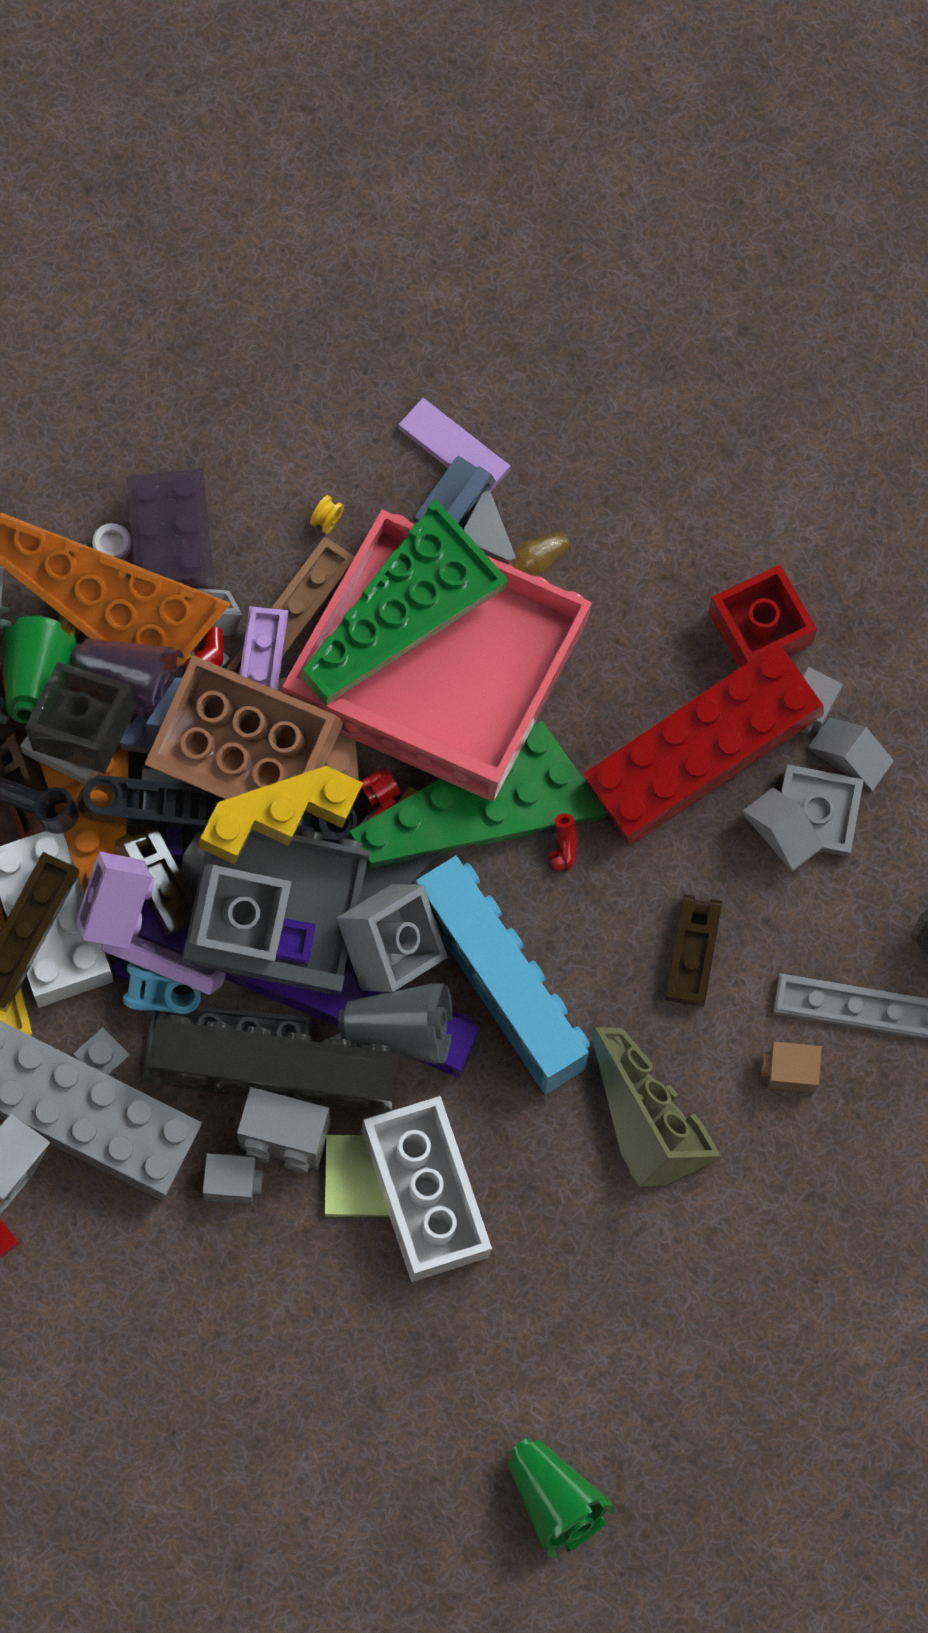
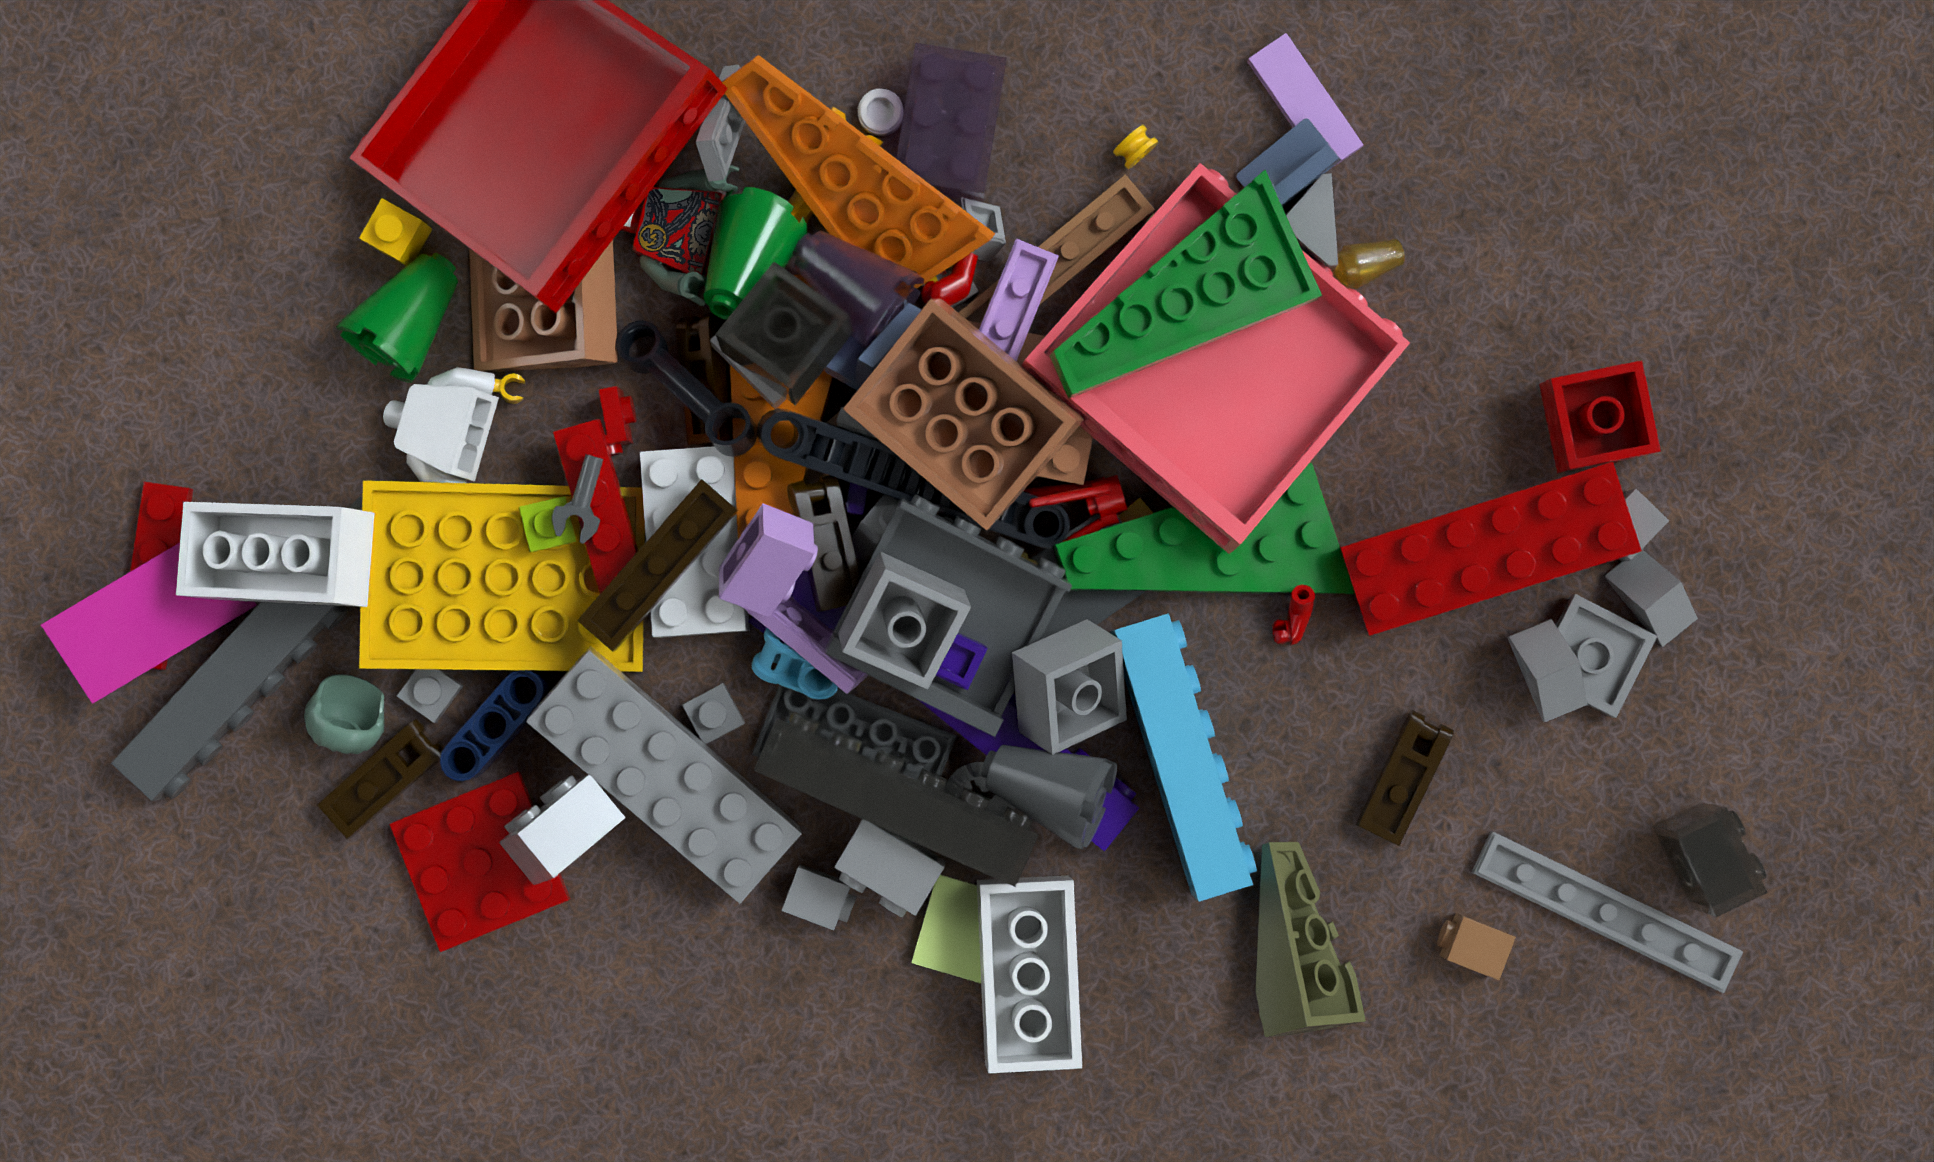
camera: 20 degrees right, 15 degrees up
(278, 810) = (978, 520): yellow brick -> none

